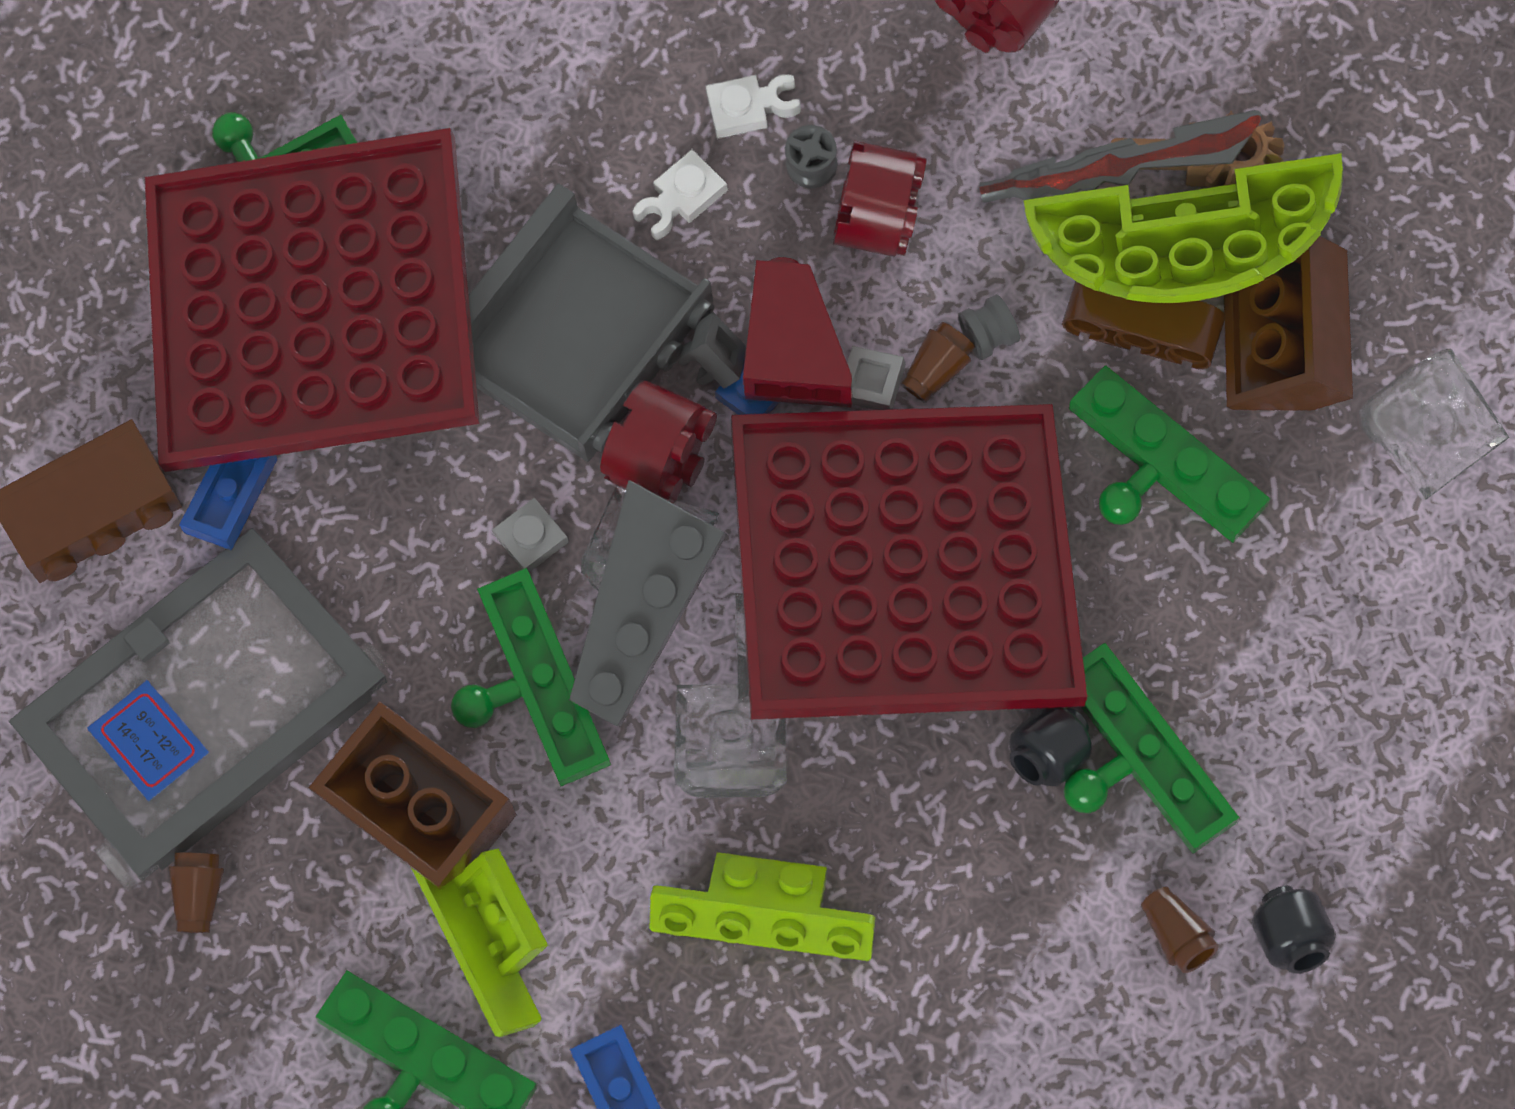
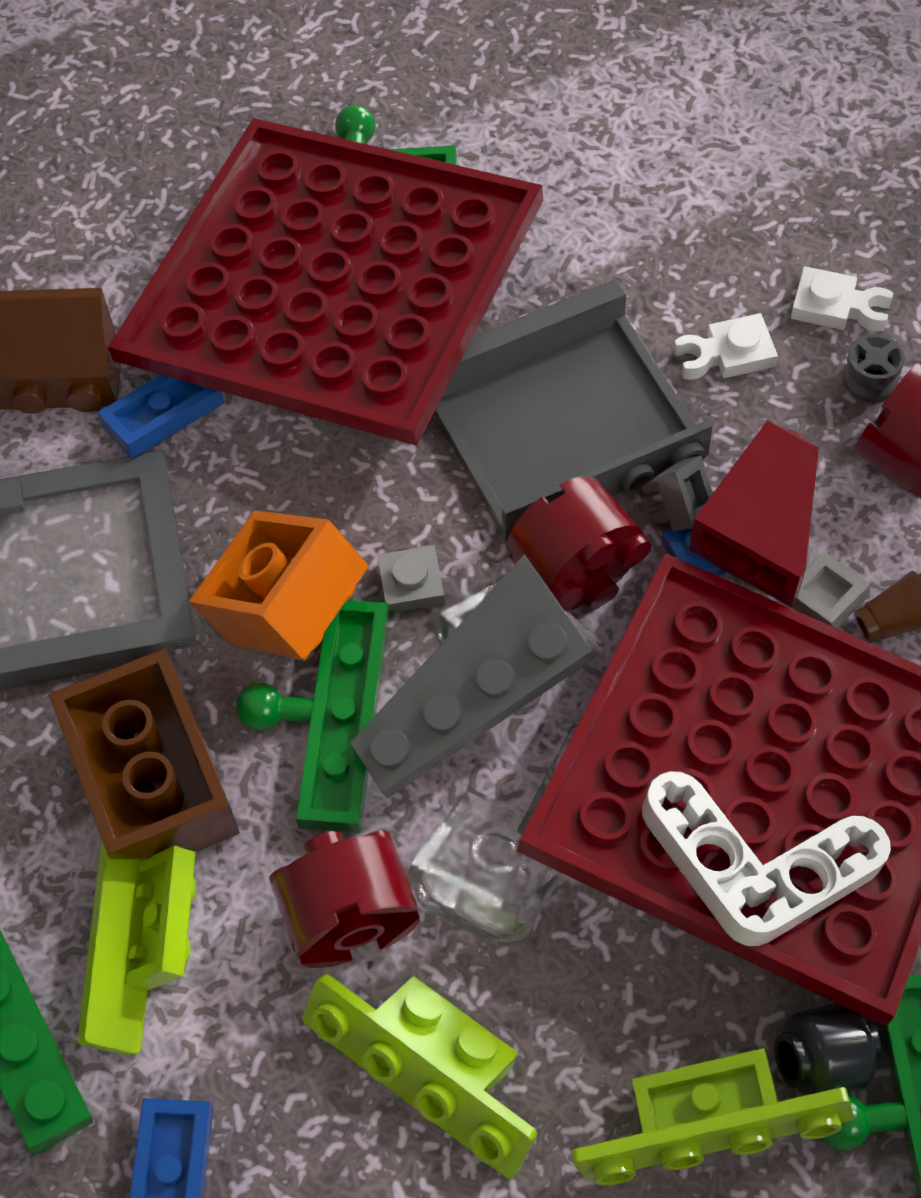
camera: 25 degrees right, 10 degrees down
(434, 599) = (280, 584): none -> orange brick
(636, 821) = (344, 897): none -> dark red brick
(932, 651) = (747, 878): none -> white beam
(988, 833) = (708, 1111): none -> lime bracket

